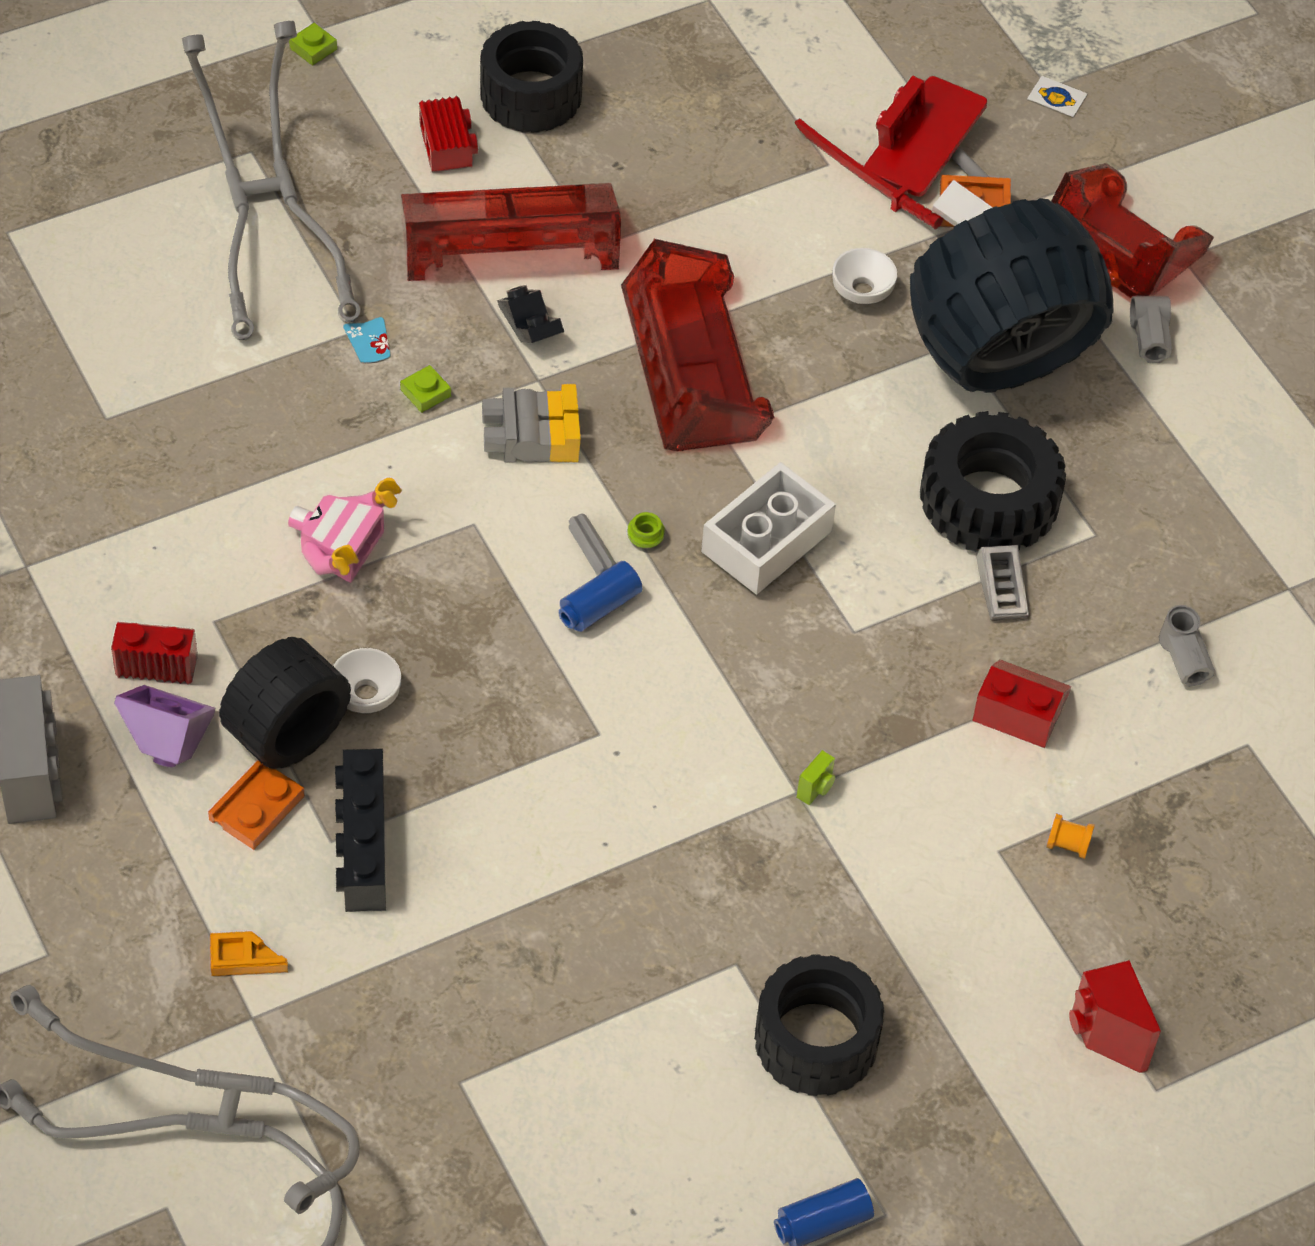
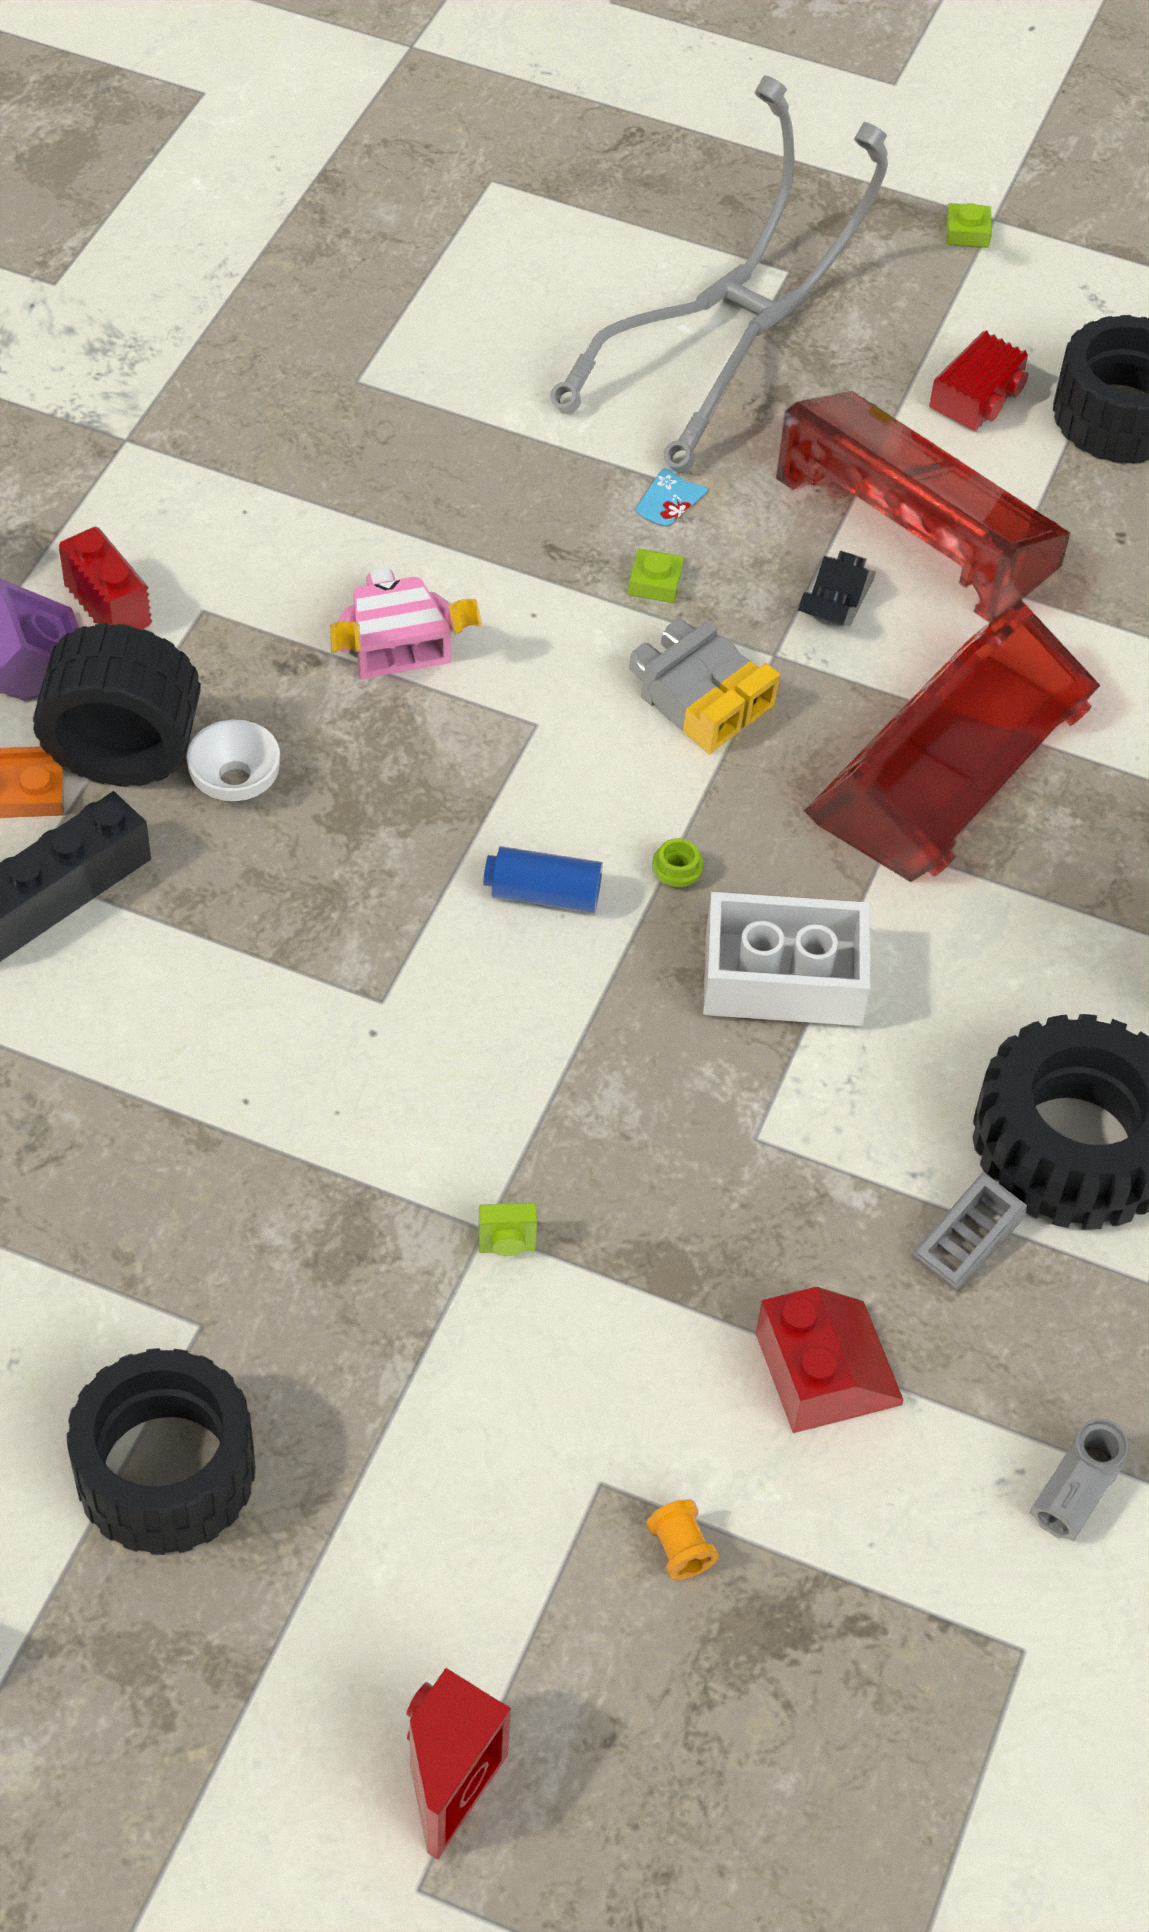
camera: 50 degrees right, 0 degrees up
(590, 543) = (611, 828): light grey axle -> none

